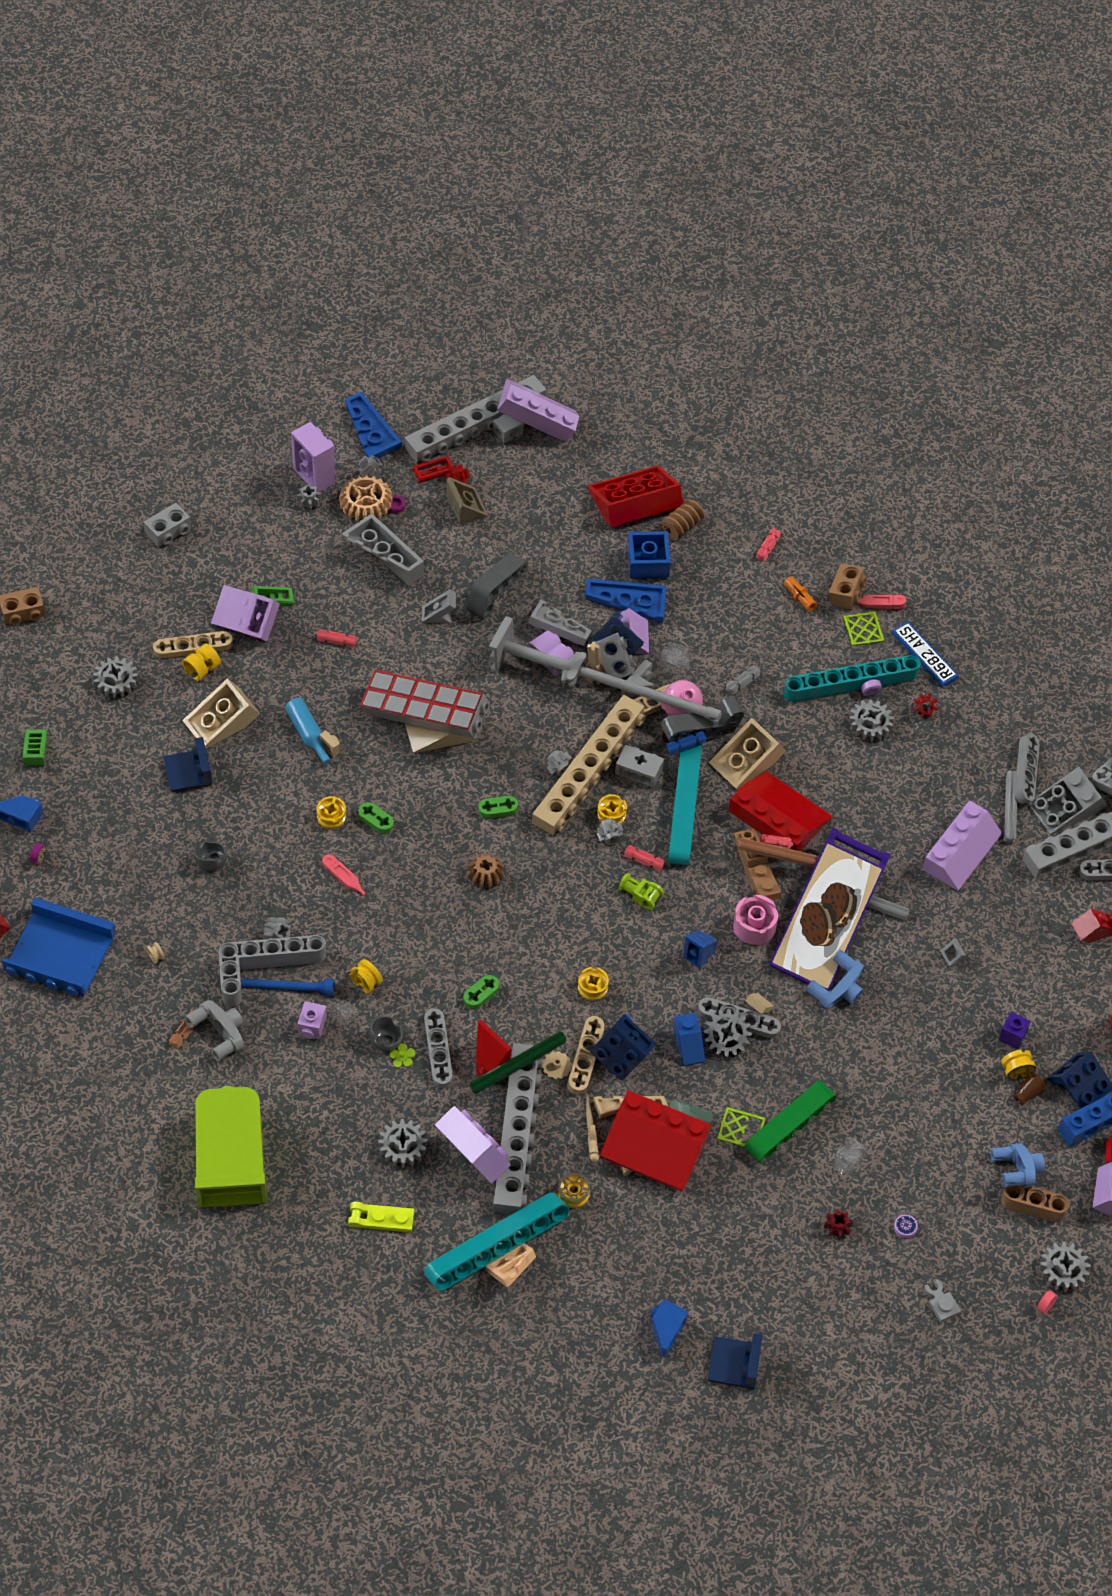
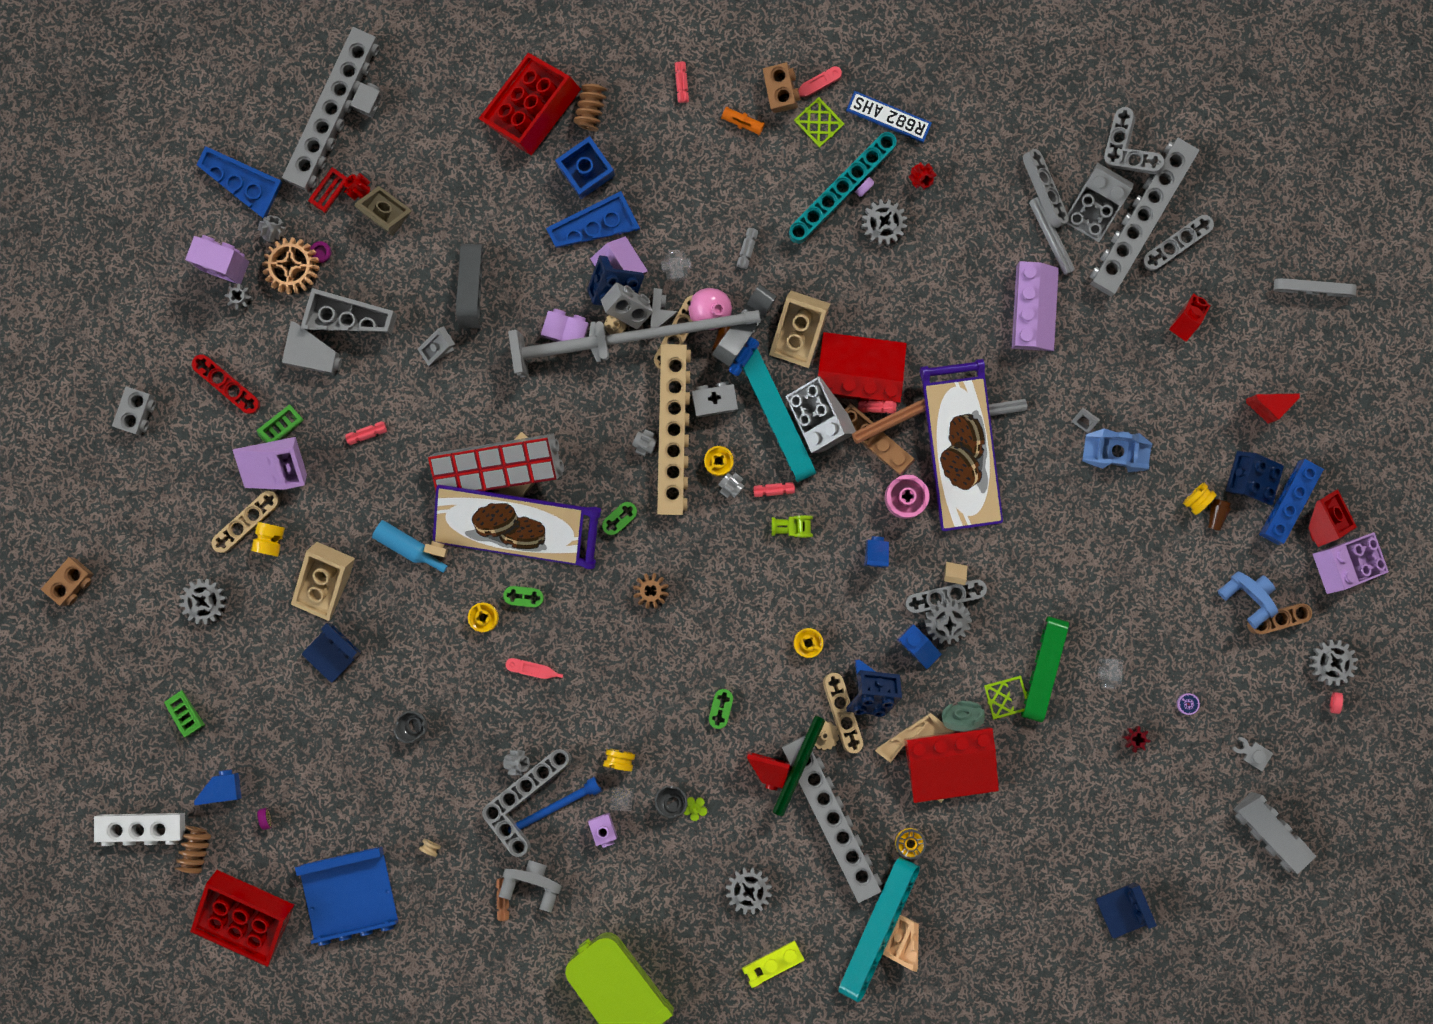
camera: 25 degrees left, 30 degrees up
(250, 549) = (225, 385): none -> red beam
(334, 559) = (309, 352): none -> light grey slope
(408, 759) = (514, 525): none -> flag
(438, 1048) = (719, 783): light grey beam -> none
(470, 1141) = (812, 867): brick -> none
(538, 411) = (384, 66): lavender slope -> none
(552, 621) = (547, 295): light grey wing -> none
(592, 1139) = (897, 789): tan piece -> none
(667, 1324) = (1055, 913): blue slope -> none
(721, 819) = (820, 416): none -> light grey slope
(845, 988) = (1017, 513): medium blue connector -> none
(919, 1374) = (1274, 833): none -> light grey wedge
(974, 976) = (1099, 450): none -> medium blue piece
(1014, 1030) = (1178, 467): dark purple brick -> none

